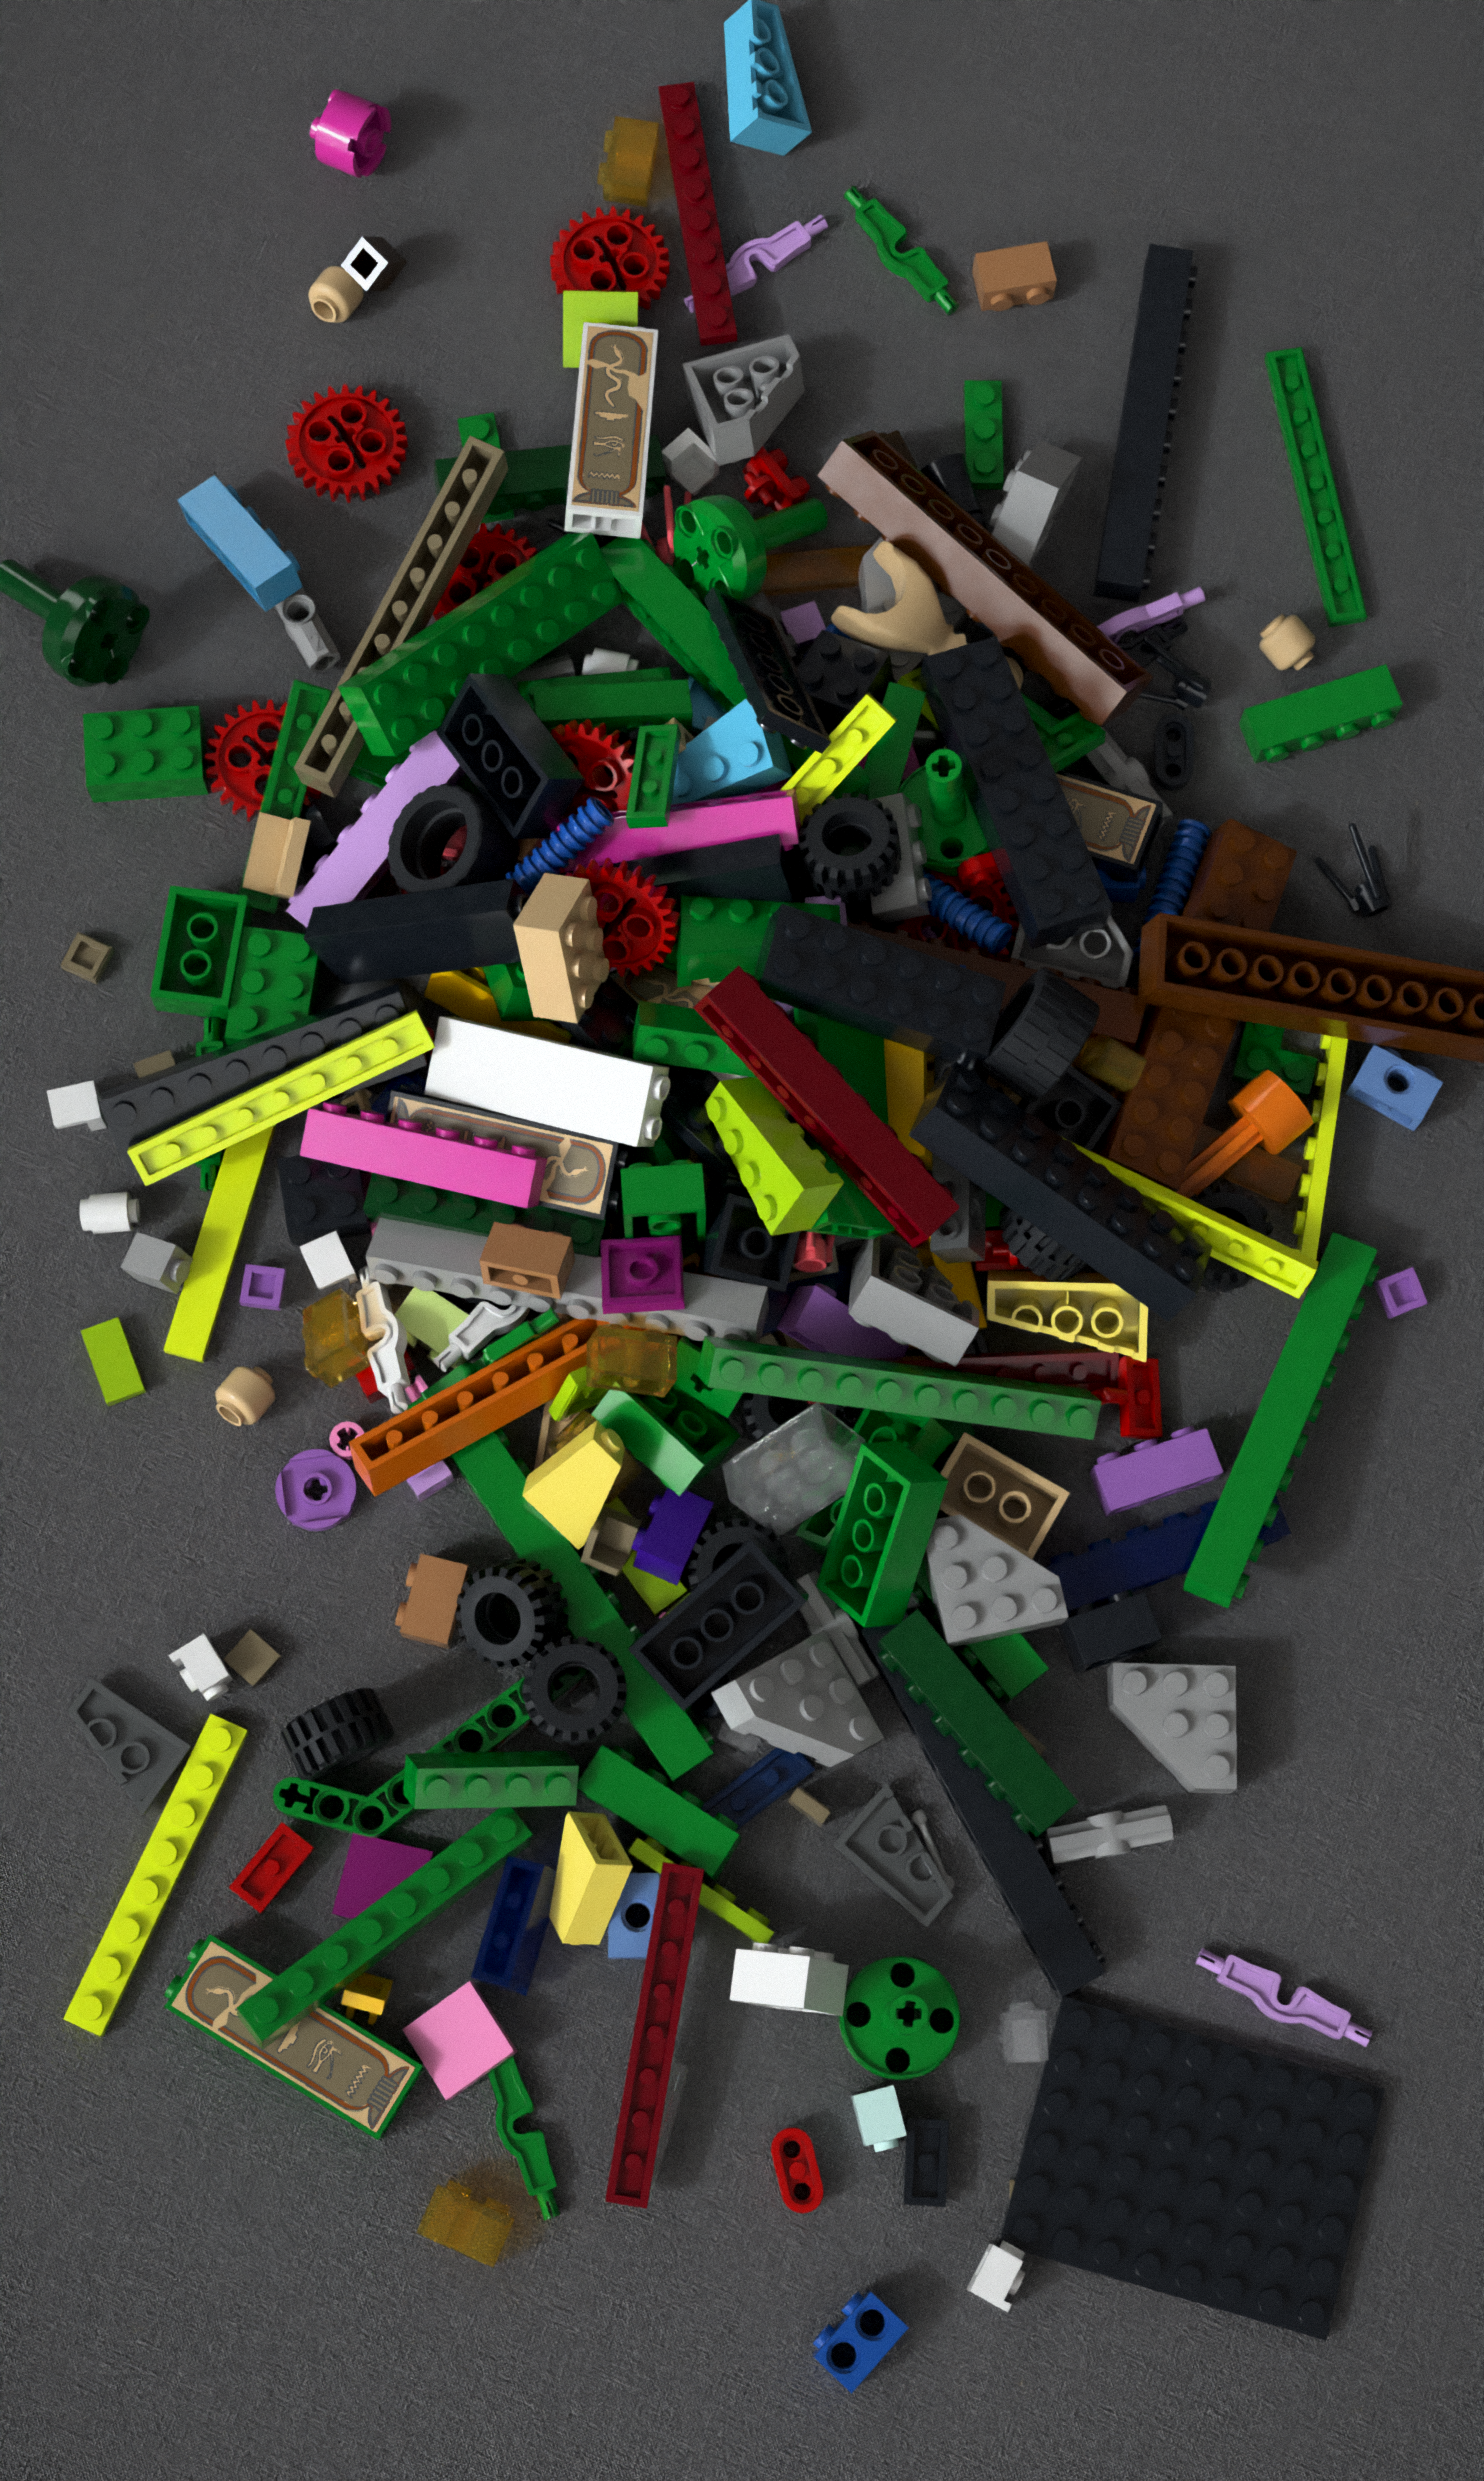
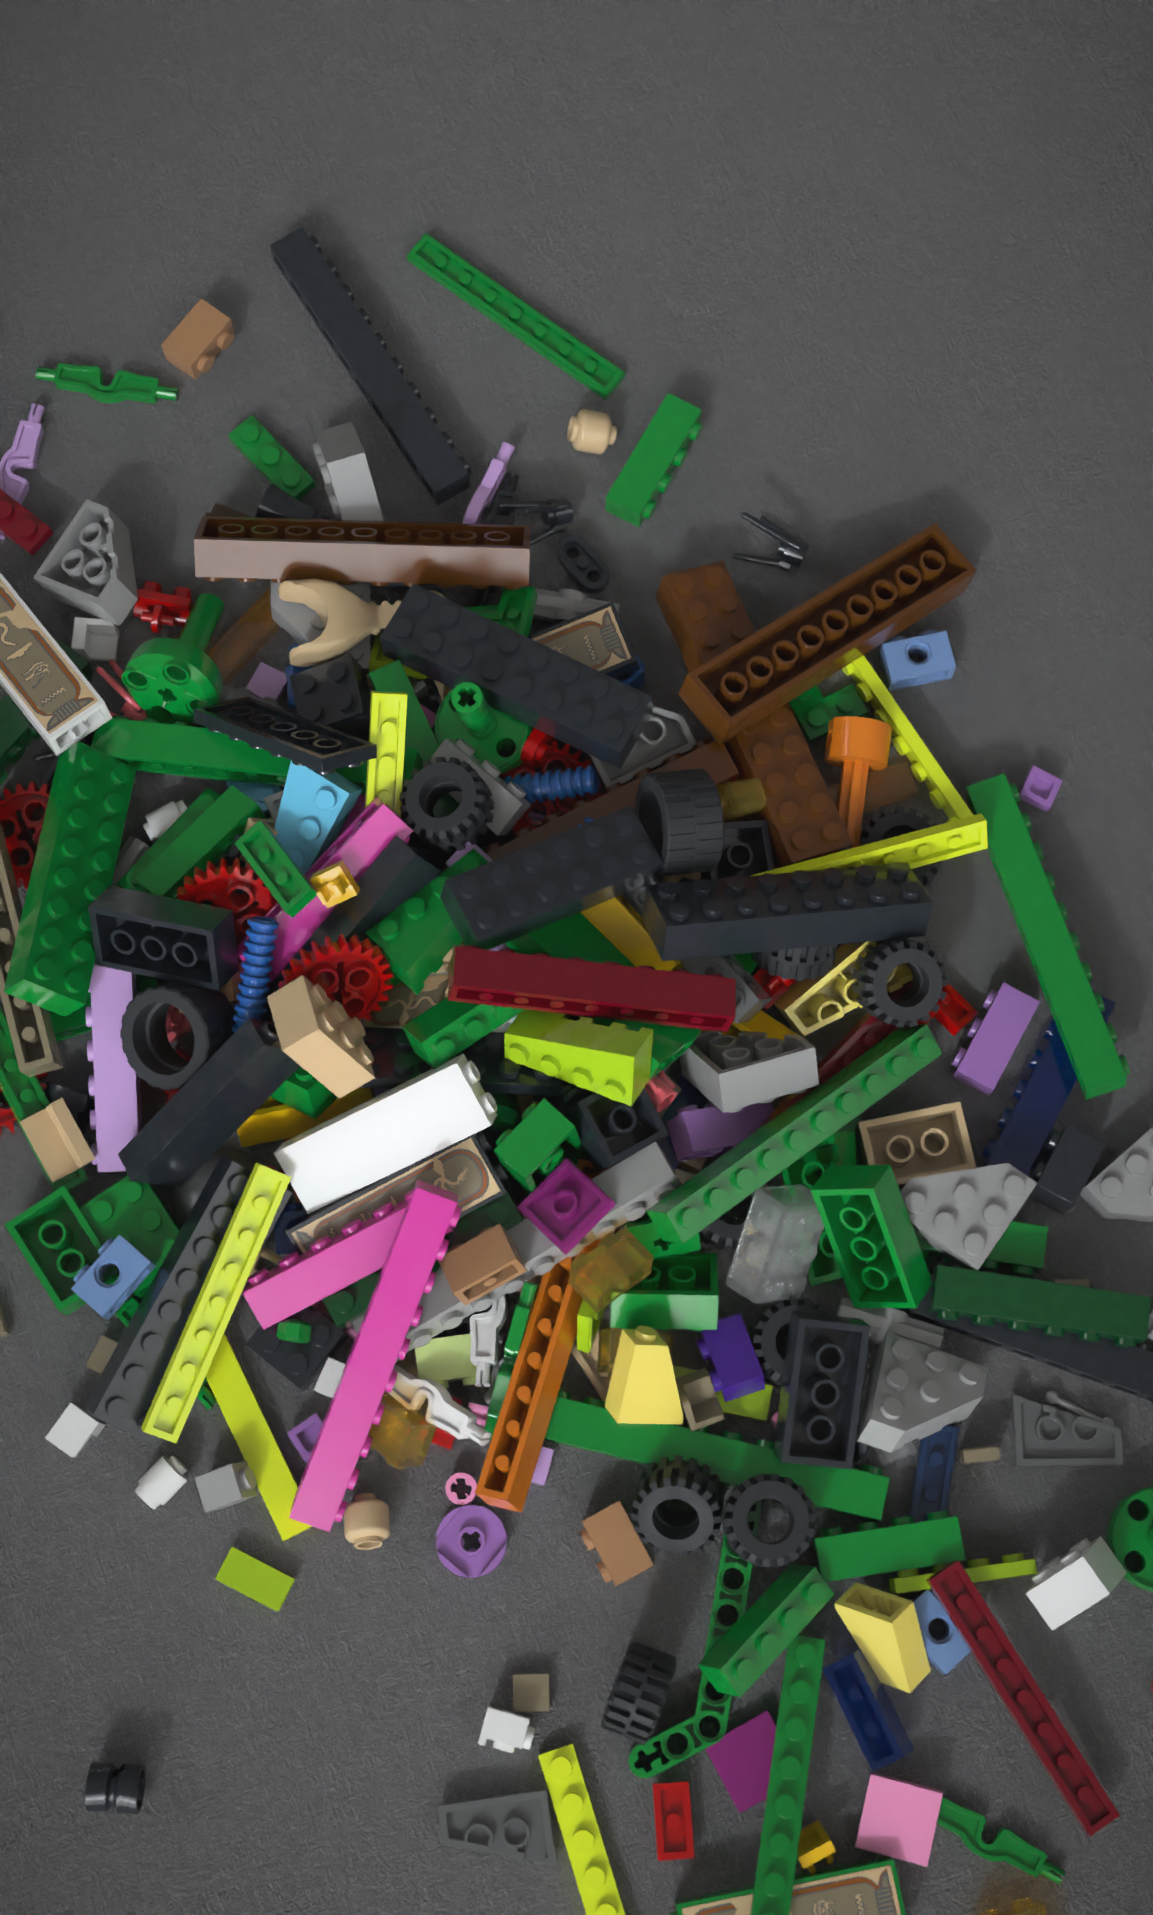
camera: 35 degrees left, 0 degrees up
(237, 1015) = (132, 1268): none -> medium blue brick
(325, 1180) = (294, 1331): none -> green tile
(371, 1255) = (374, 1354): none -> dark pink brick
(689, 831) = (334, 884): none -> yellow tile
(1117, 1374) = (924, 989): none -> black tyre
(1178, 872) = (662, 649): blue piece -> none

